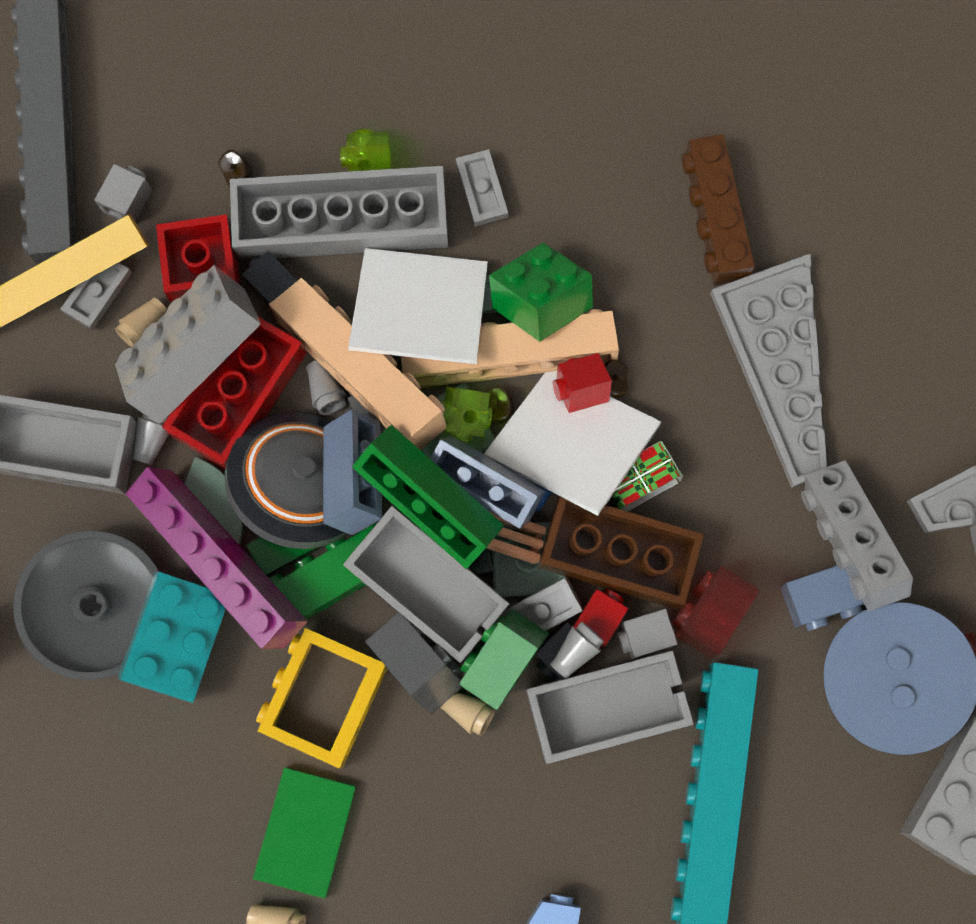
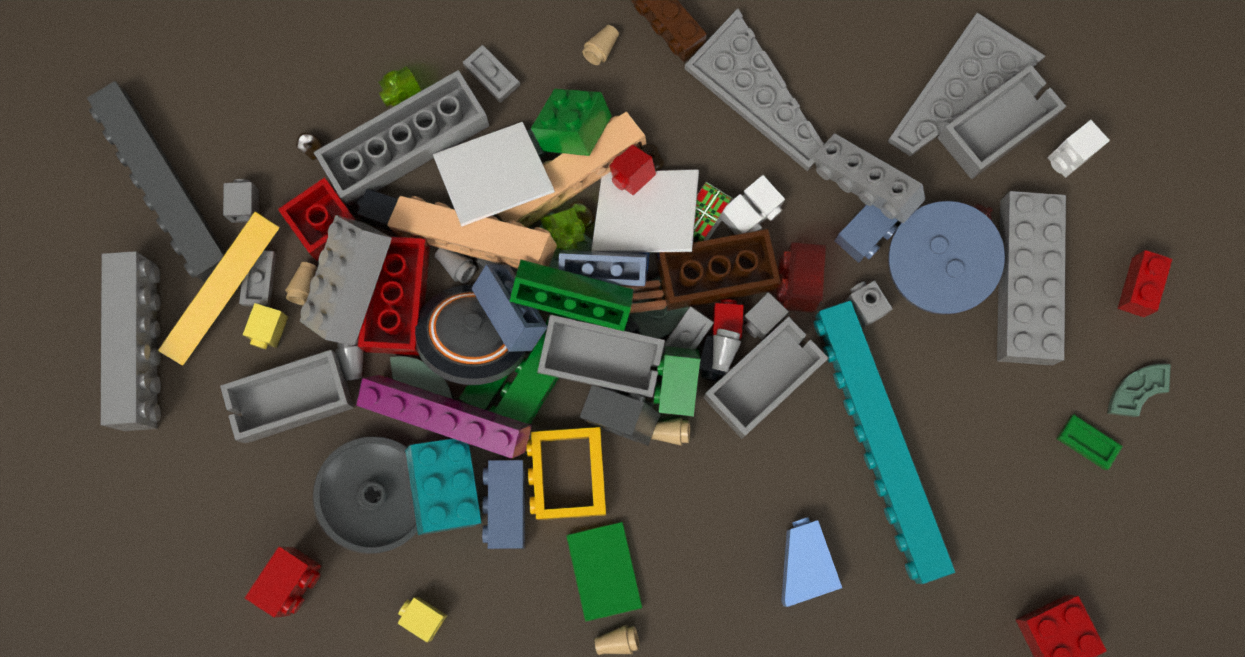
camera: 30 degrees left, 0 degrees up
(71, 775) = (421, 618): none -> light yellow brick
(75, 350) = (265, 326): none -> light yellow brick
(232, 696) = (504, 504): none -> sand blue brick
(625, 217) = (599, 46): none -> tan cone
(718, 494) = (752, 208): none -> white piece
(779, 682) = (868, 303): none -> light grey brick

